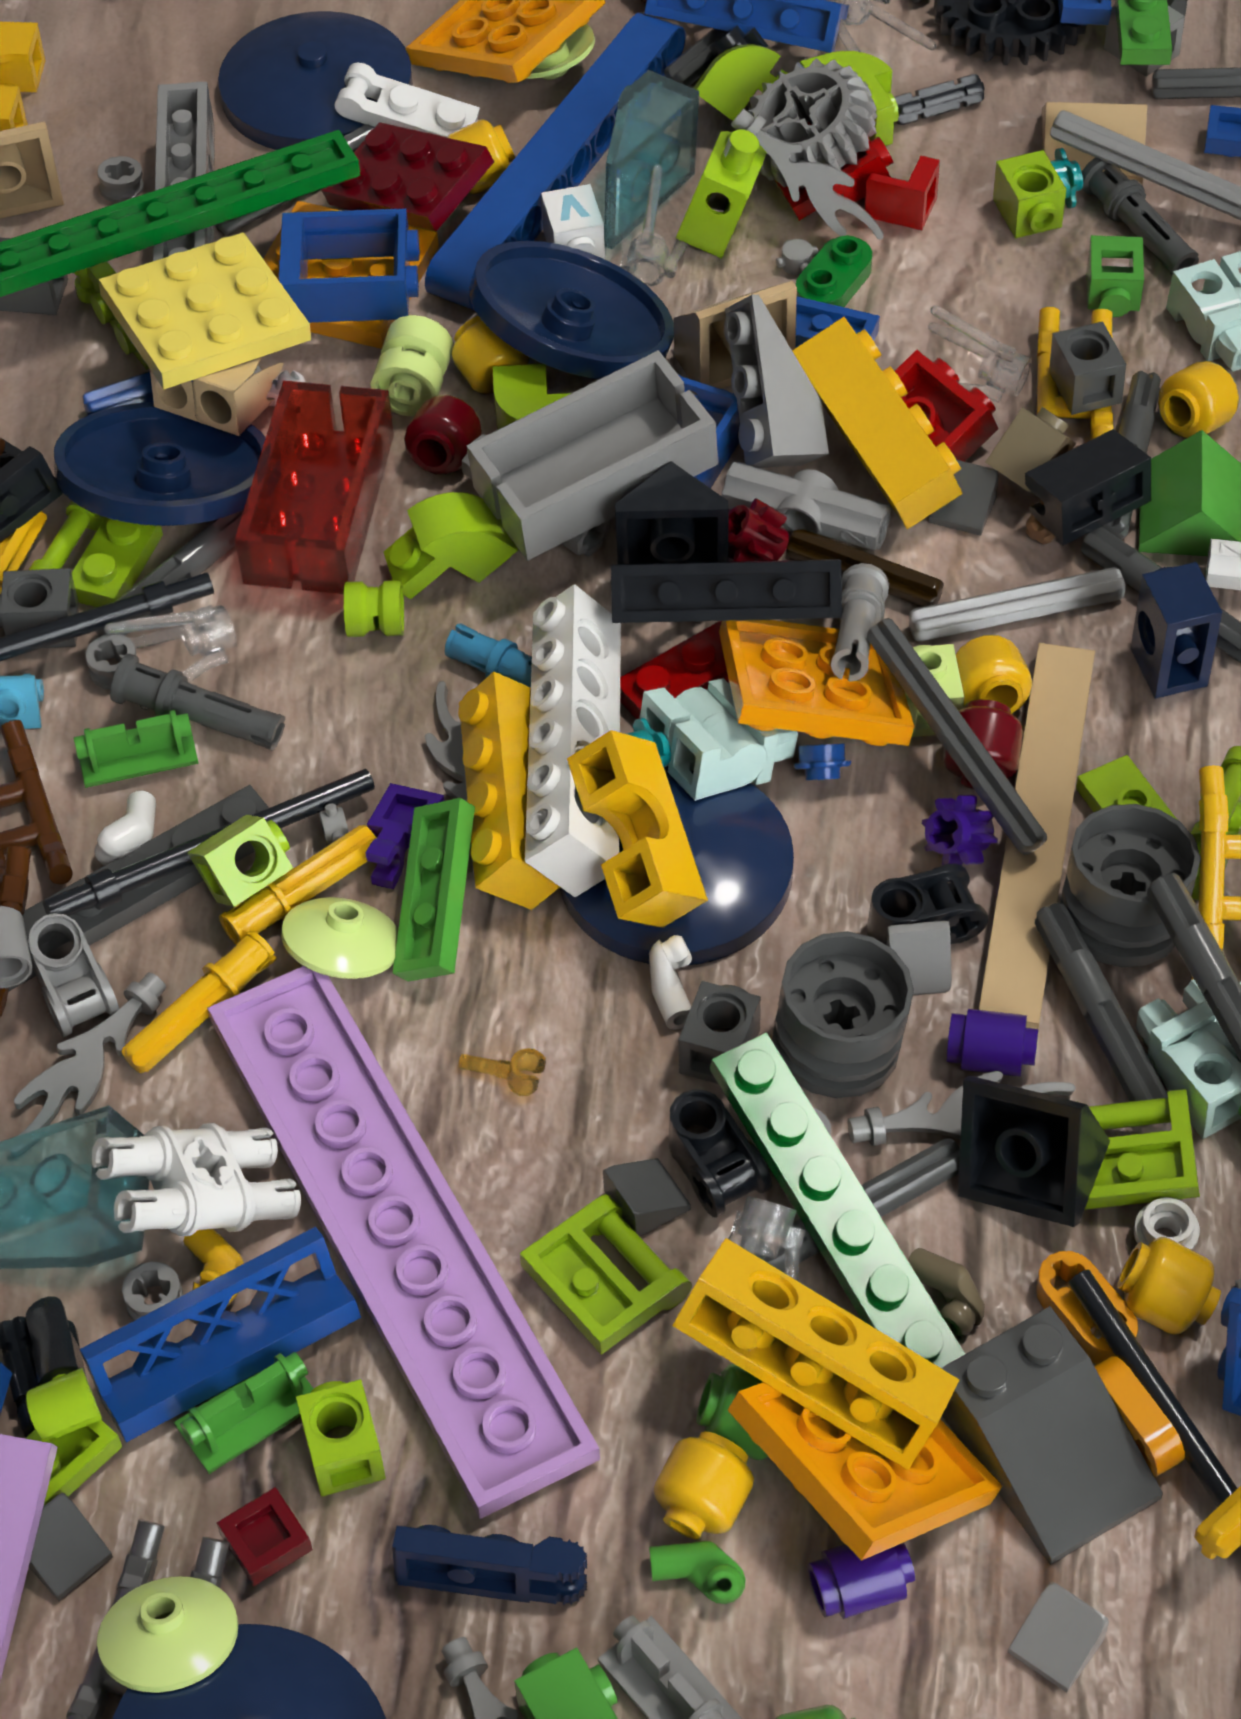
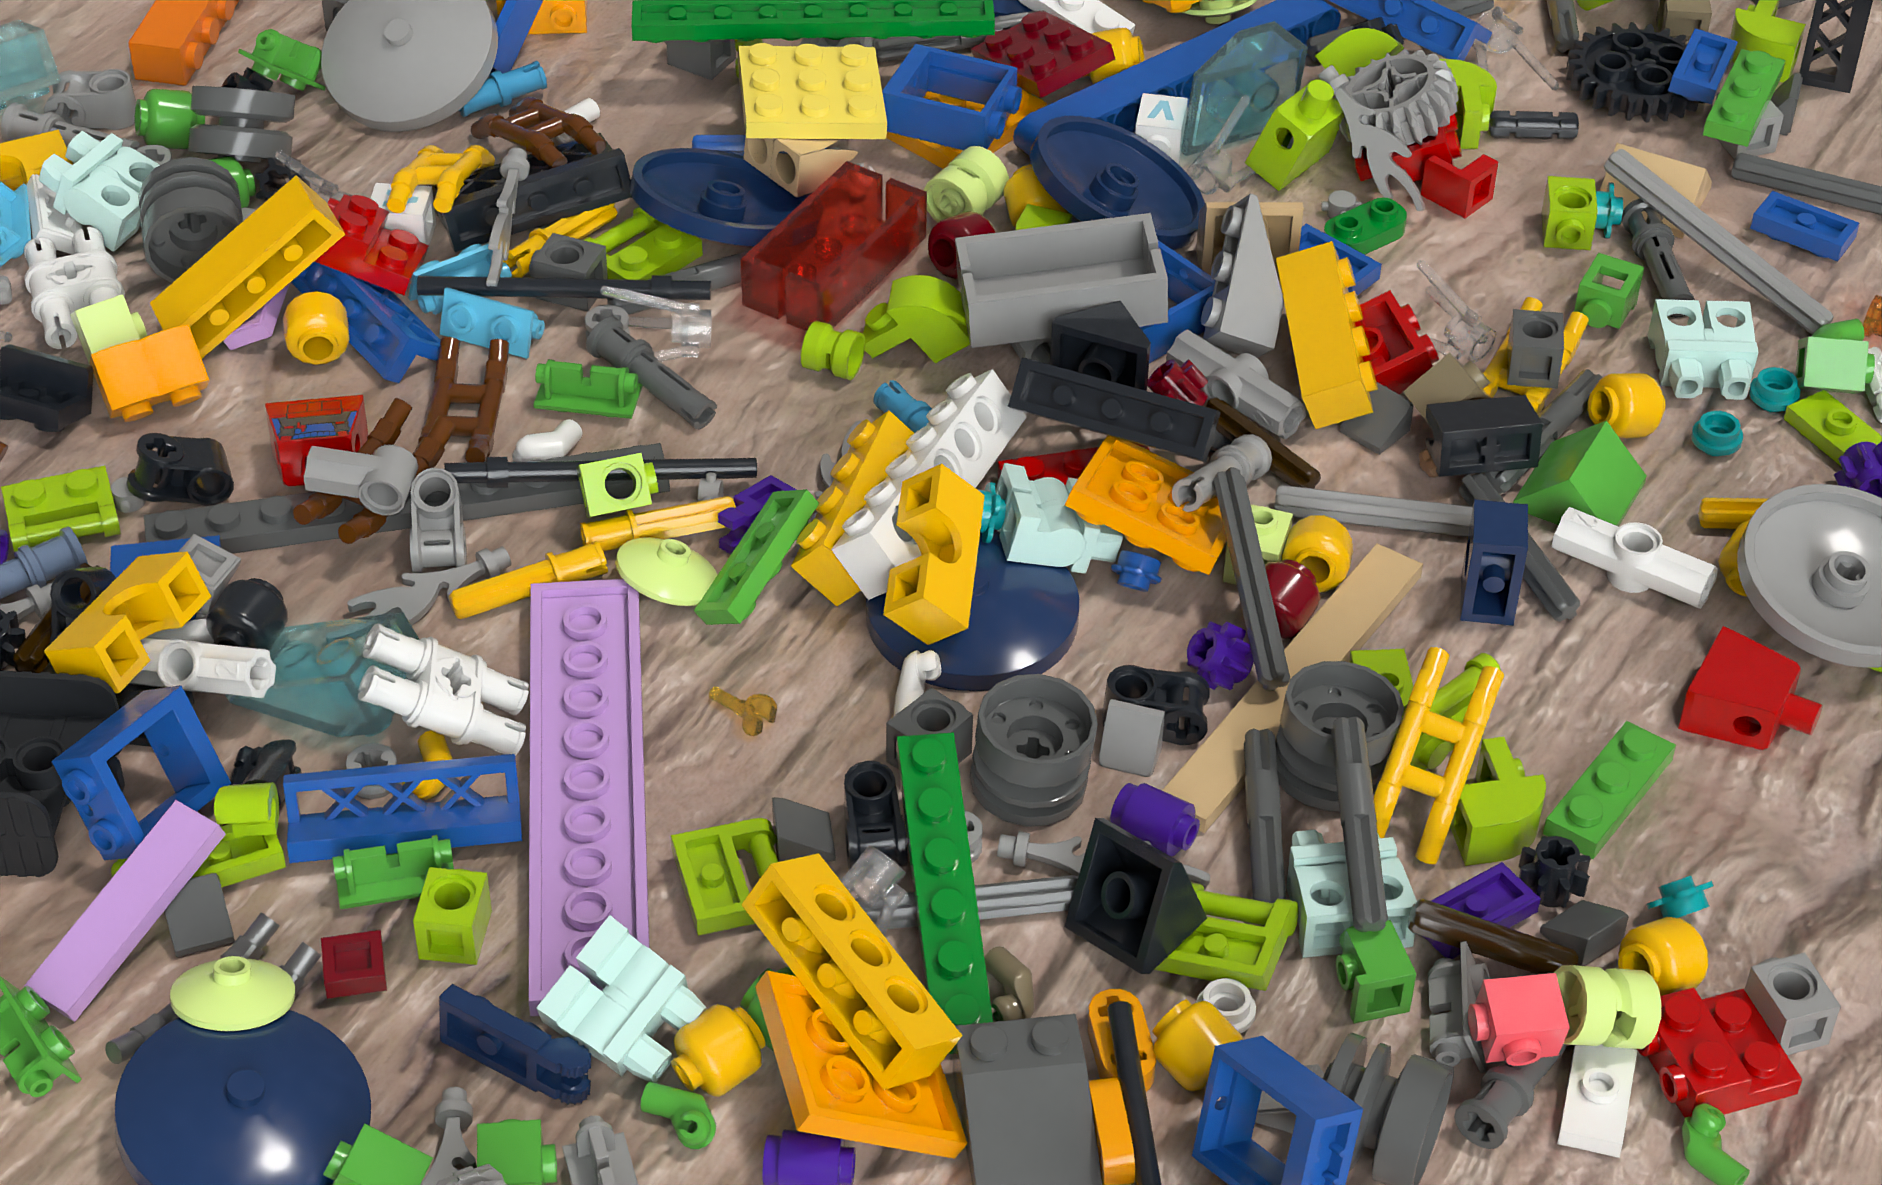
camera: 20 degrees right, 10 degrees down
(594, 1479) = (634, 1002): none -> light aqua hips

